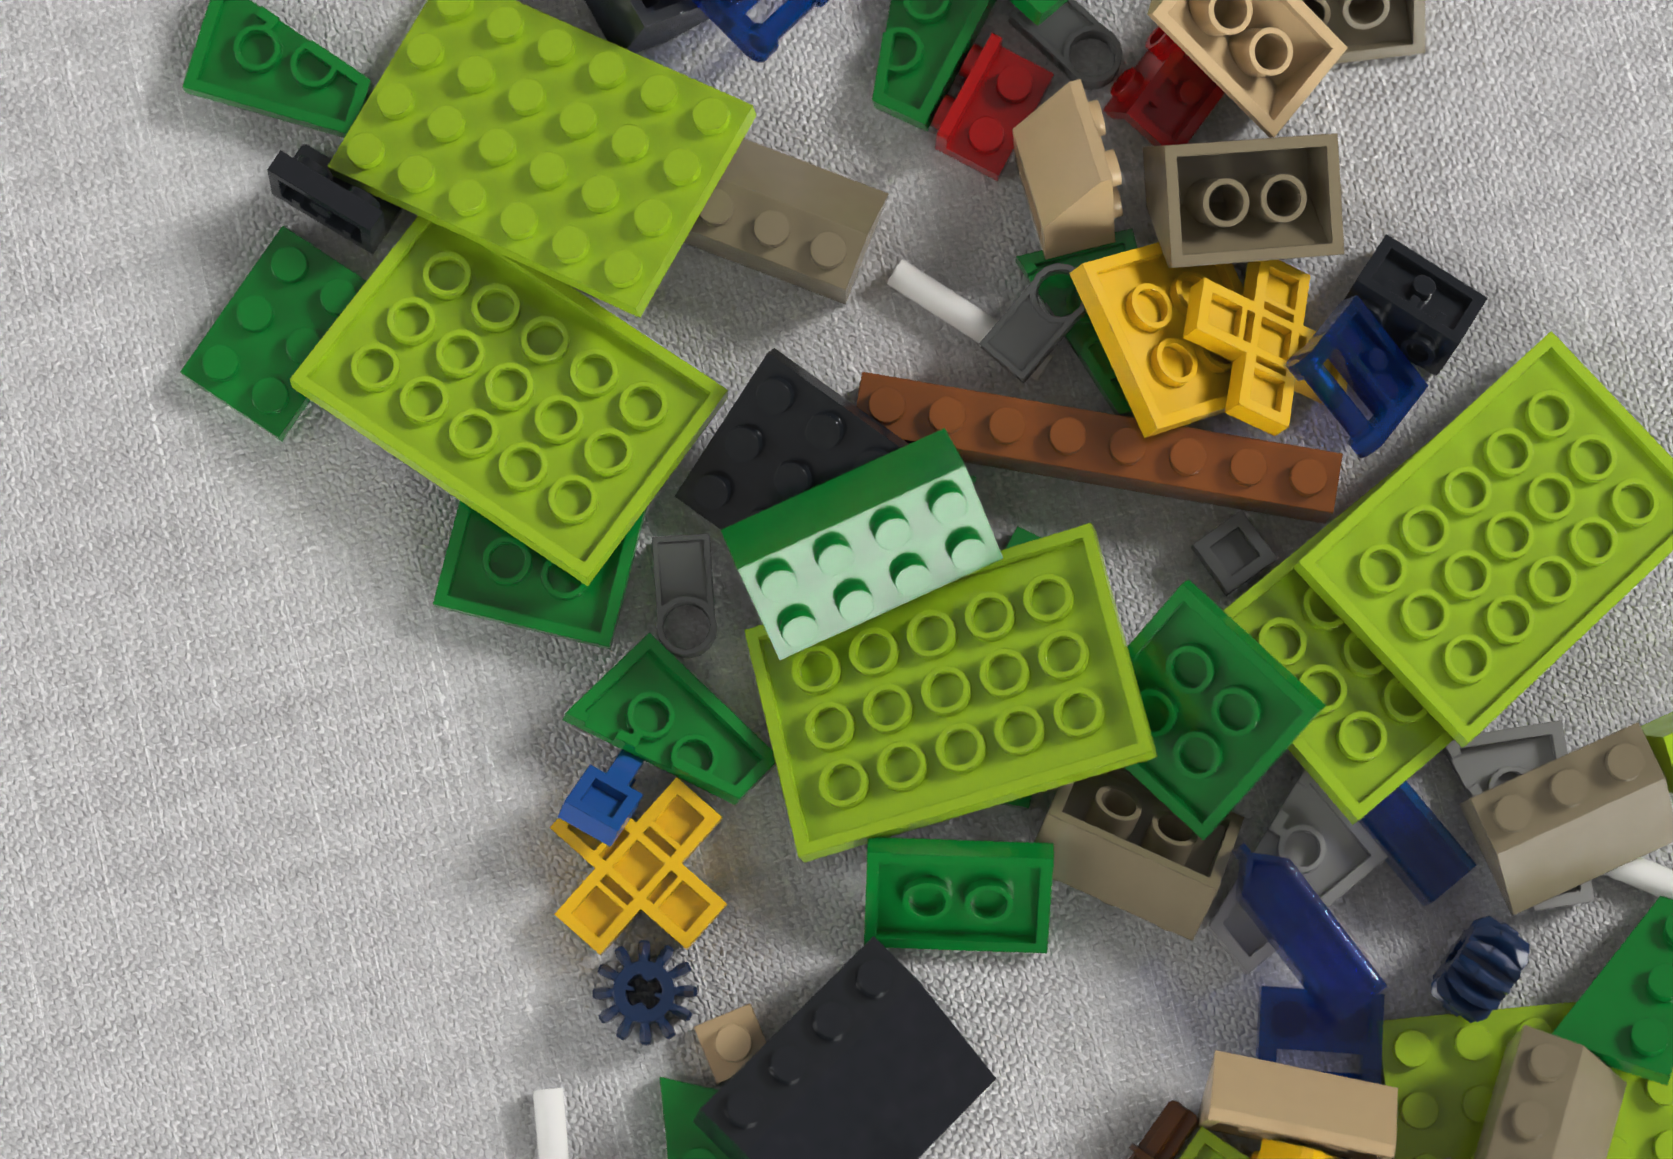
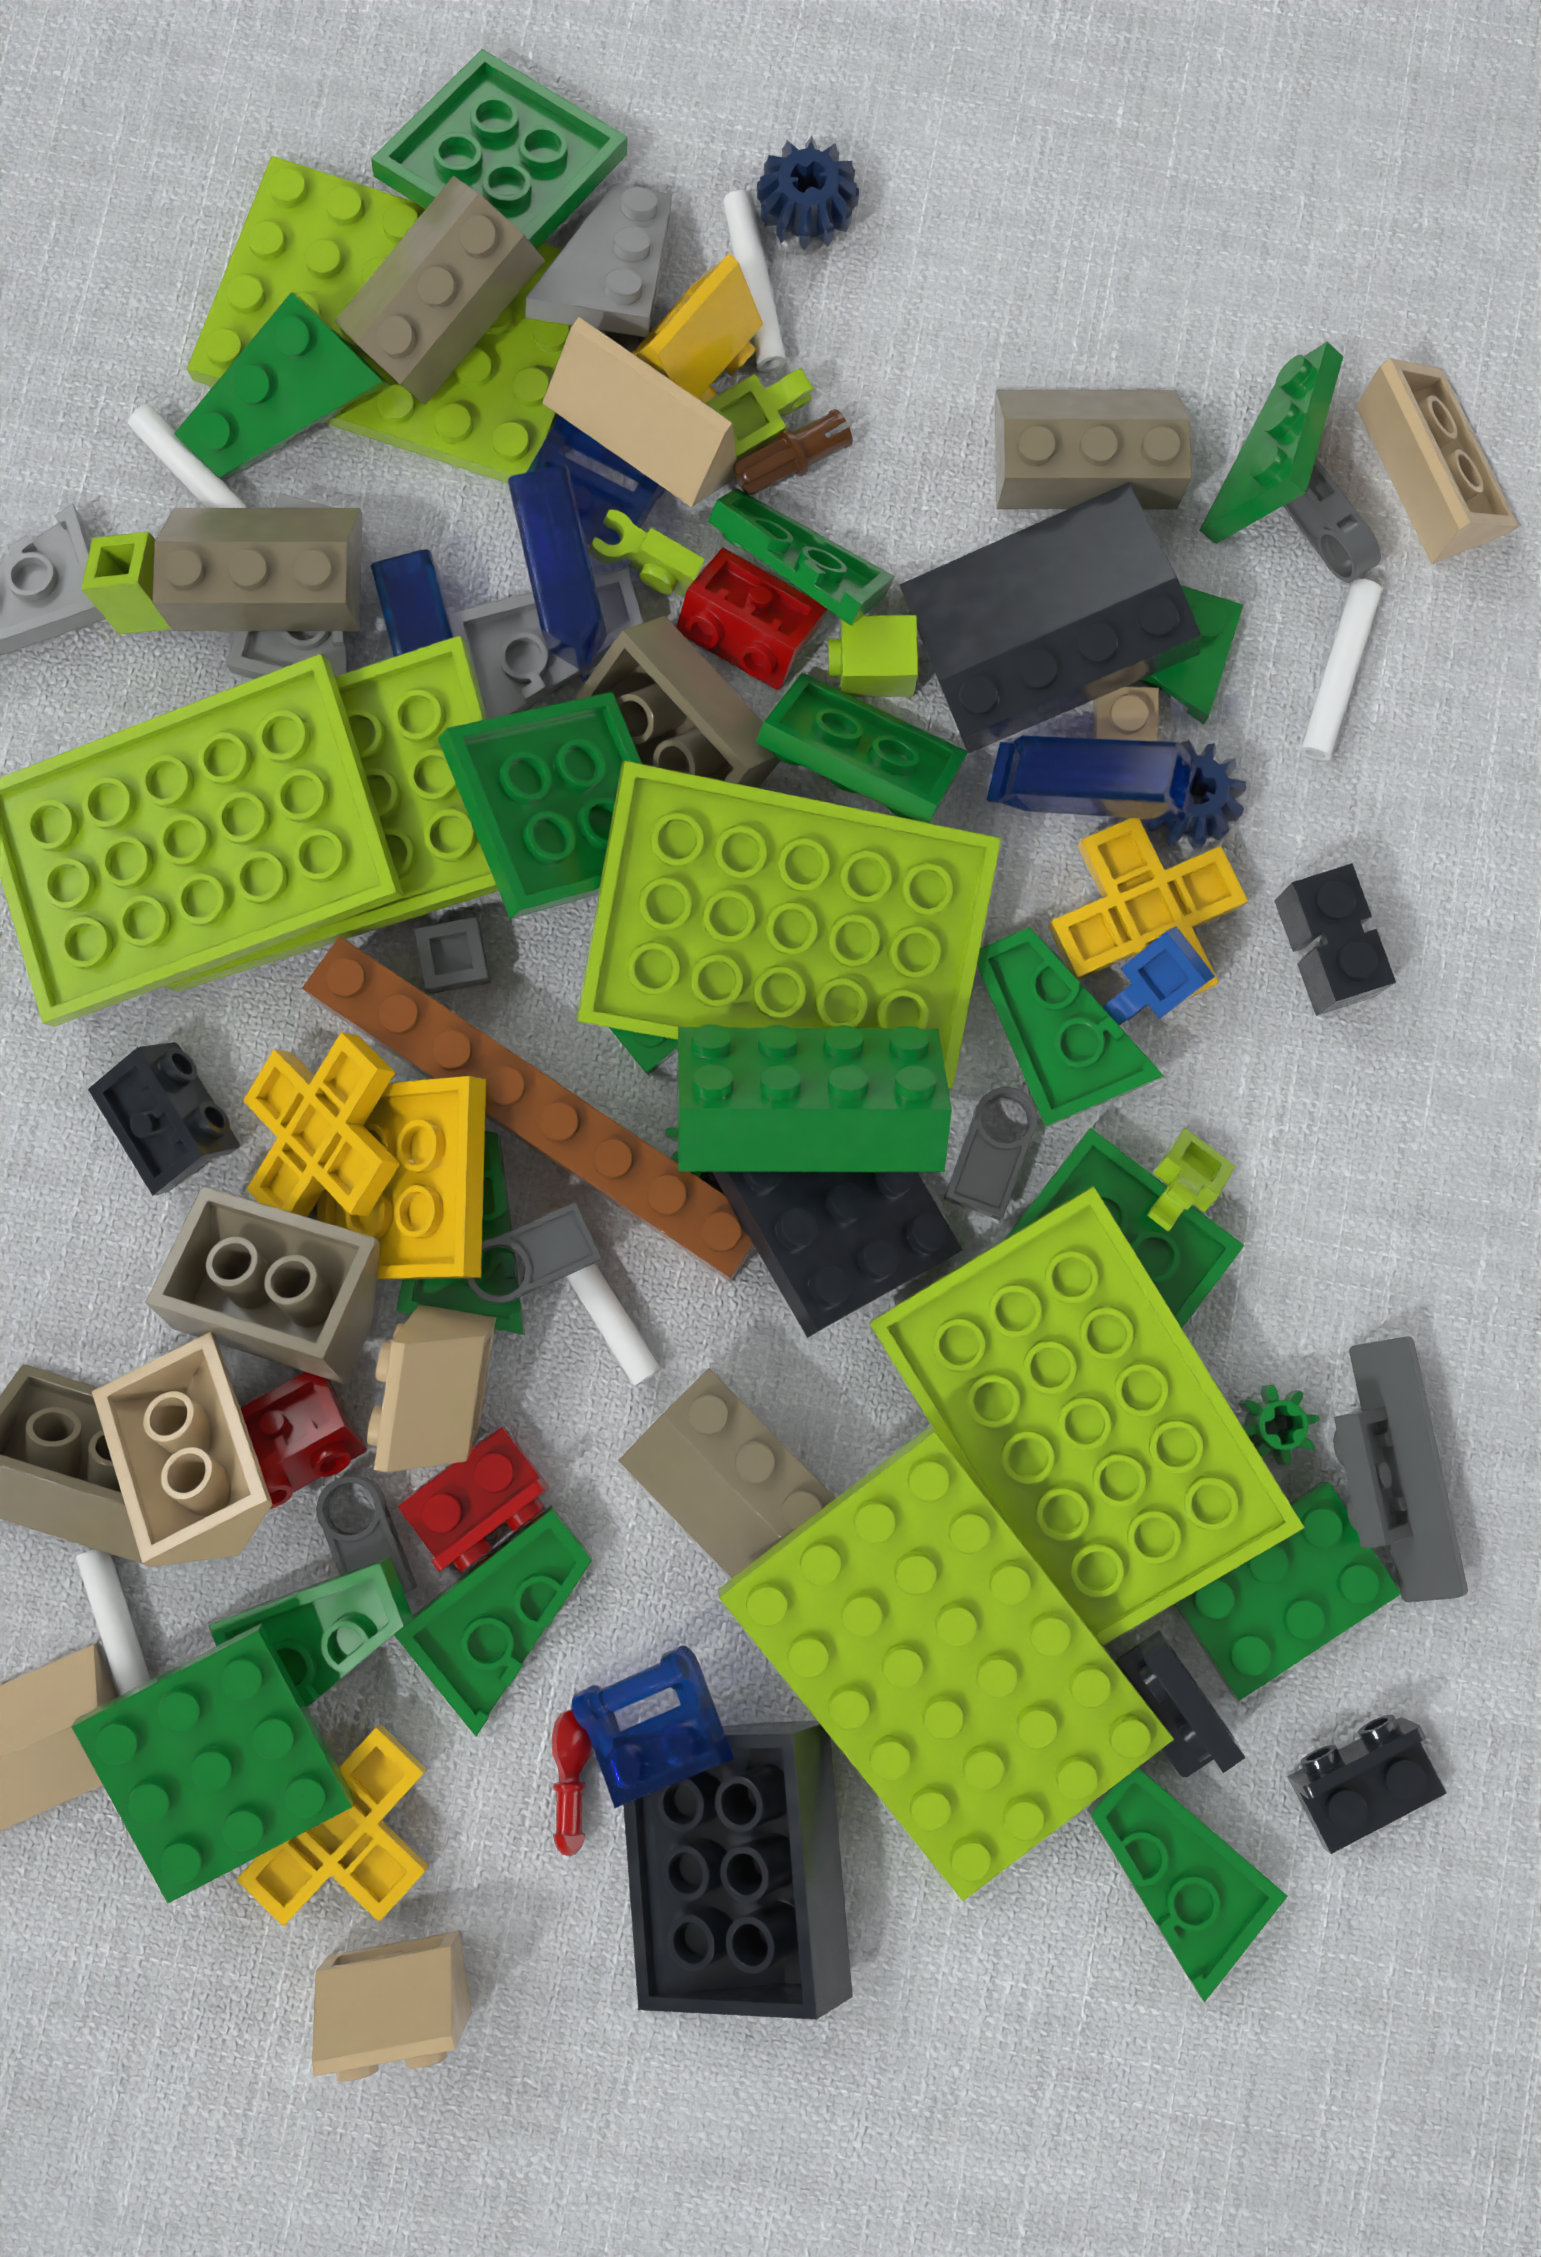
camera: 160 degrees left, 0 degrees up
(149, 208) = (1366, 1782): none -> black bracket
(226, 468) = (1397, 1472): none -> dark grey bracket
(359, 462) = (1287, 1438): none -> green gear
(477, 930) = (1351, 961): none -> black piece
(501, 646) = (1192, 1176): none -> lime plate
(740, 957) = (1094, 777): none -> clear blue piece
(987, 992) = (876, 656): none -> lime brick
(1093, 1054) = (802, 556): none -> green wing
(1117, 982) = (749, 617): none -> red bracket
(1218, 990) = (660, 560): none -> lime plate
(1369, 365) = (232, 1065): clear blue plate -> none
(1480, 969) = (414, 473): dark blue gear -> none

